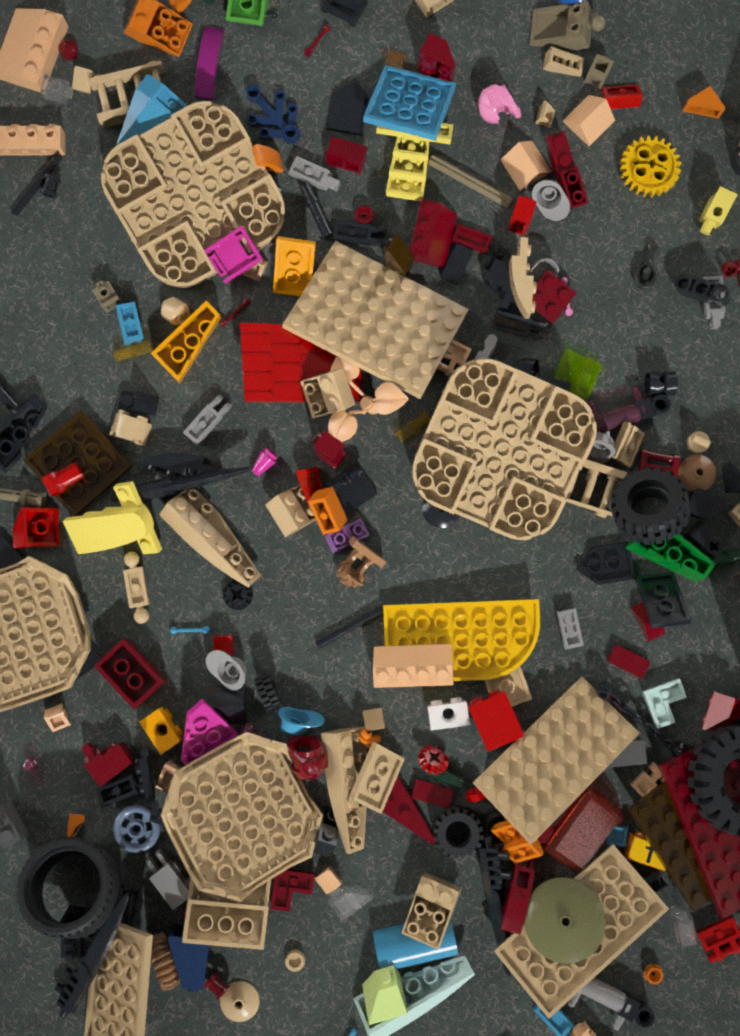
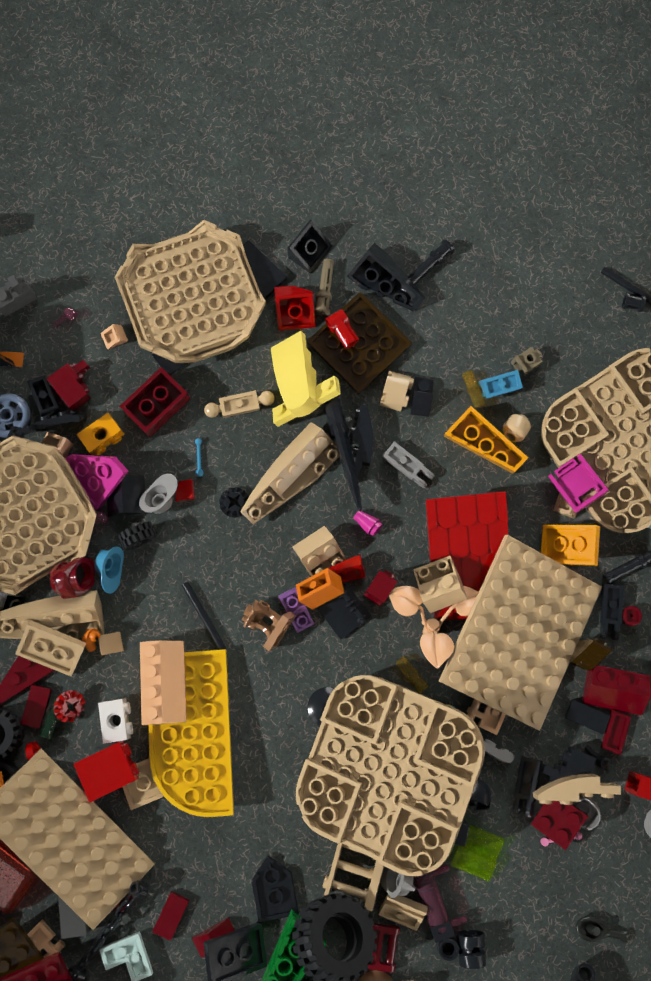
camera: 90 degrees right, 5 degrees down
(247, 301) = (531, 499): dark red hinge -> none
(569, 628) = (204, 849): light grey plate -> none

